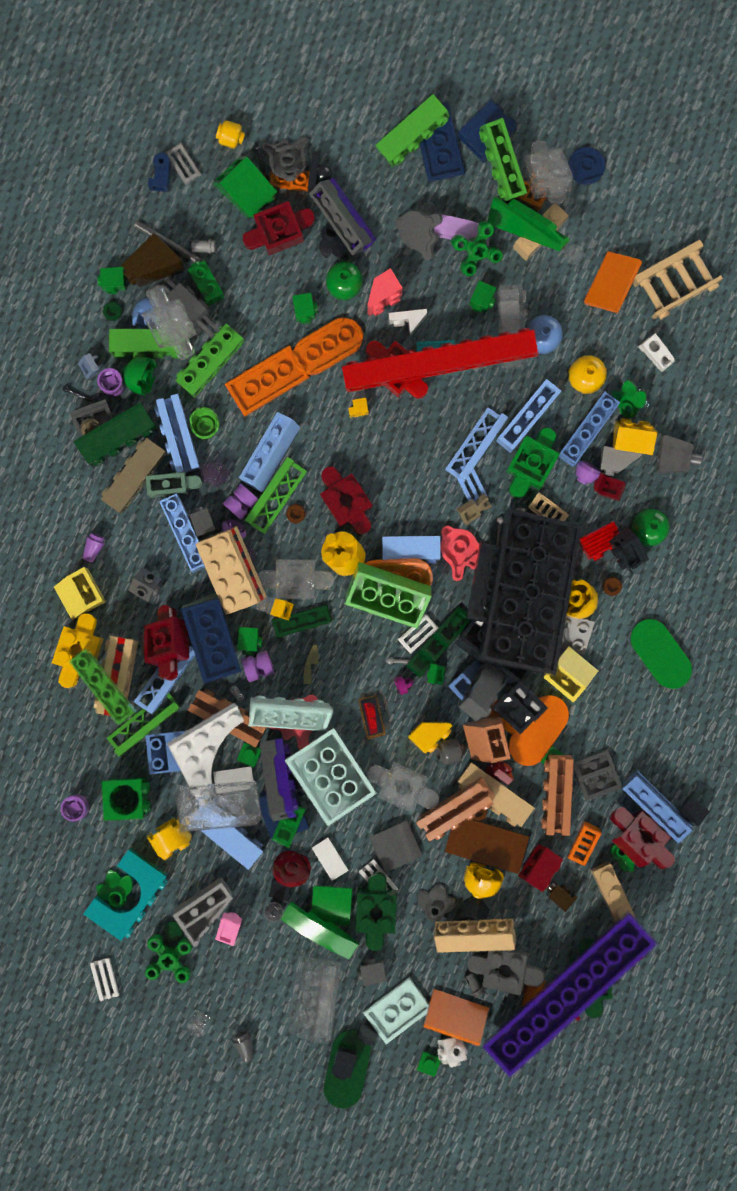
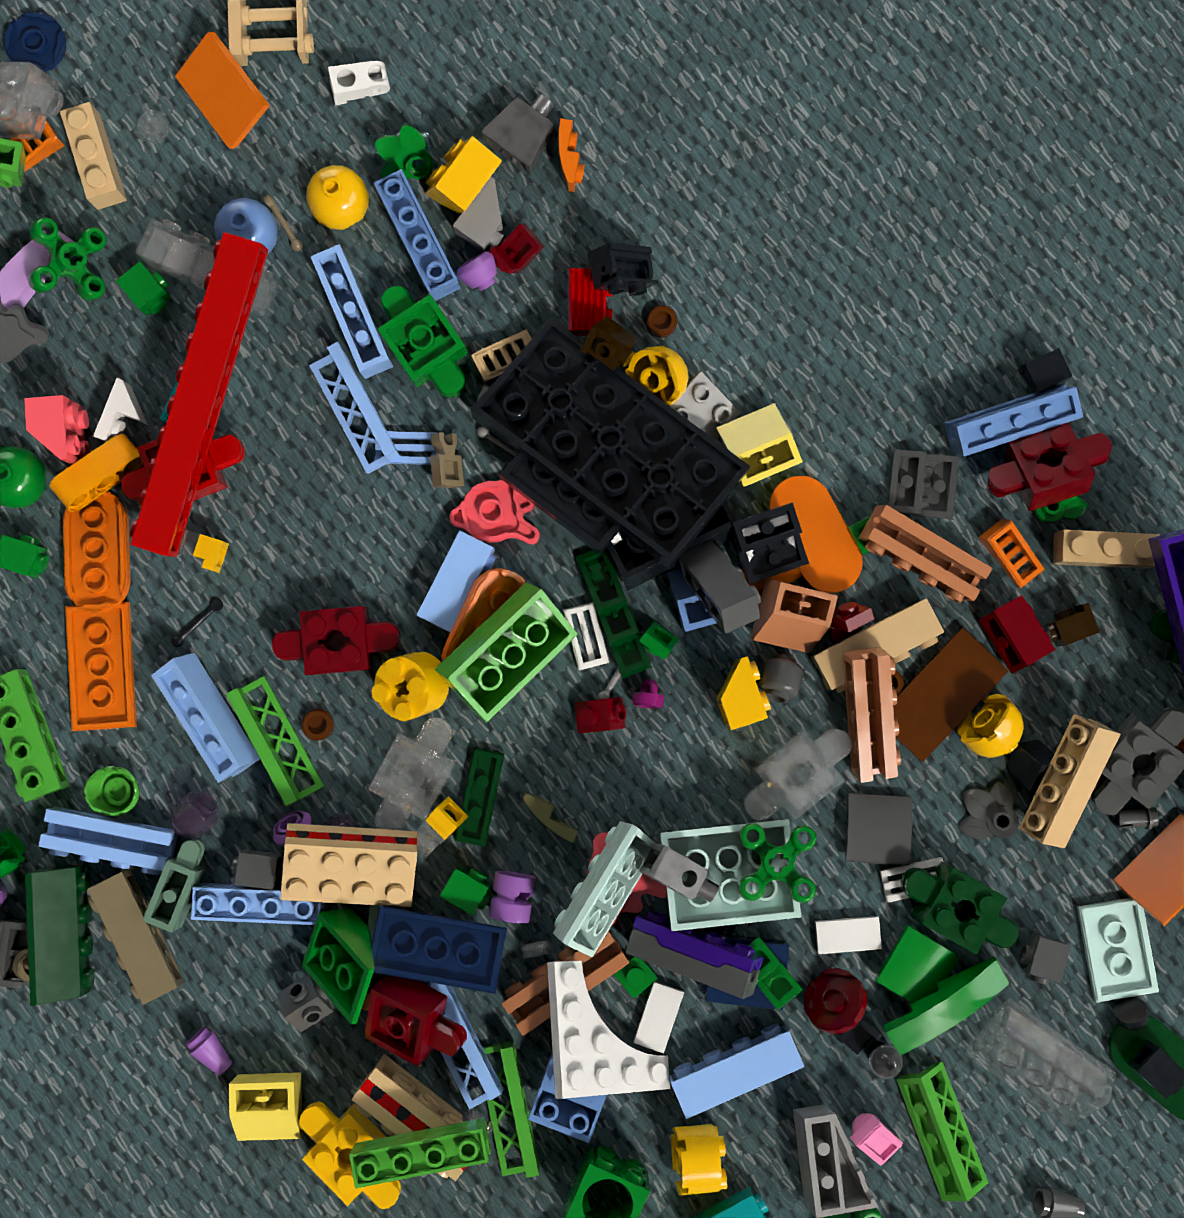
camera: 55 degrees left, 0 degrees up
(179, 592) = (341, 960): none -> green slope
(218, 806) = (688, 1066): clear brick -> none
(240, 501) = (256, 797): medium lavender wheel -> none
(248, 961) = (939, 1136): none -> bright green fence
(318, 739) = (668, 867): none -> flat silver torso
(331, 425) = (178, 640): none -> black hinge
(347, 806) = (786, 874): none -> green gear
(370, 325) = (96, 473): none -> light orange beam
(371, 717) = (672, 766): slope -> none
(379, 663) = (600, 715): none -> dark red bracket
(526, 223) = (66, 166): green wedge -> none
(550, 365) = (296, 244): none -> dark tan hinge
(583, 565) = (610, 343): none -> dark brown brick
(650, 527) = (604, 219): green cylinder -> none
(661, 654) = (795, 302): green tile -> none
(672, 491) = (569, 161): none -> orange slope

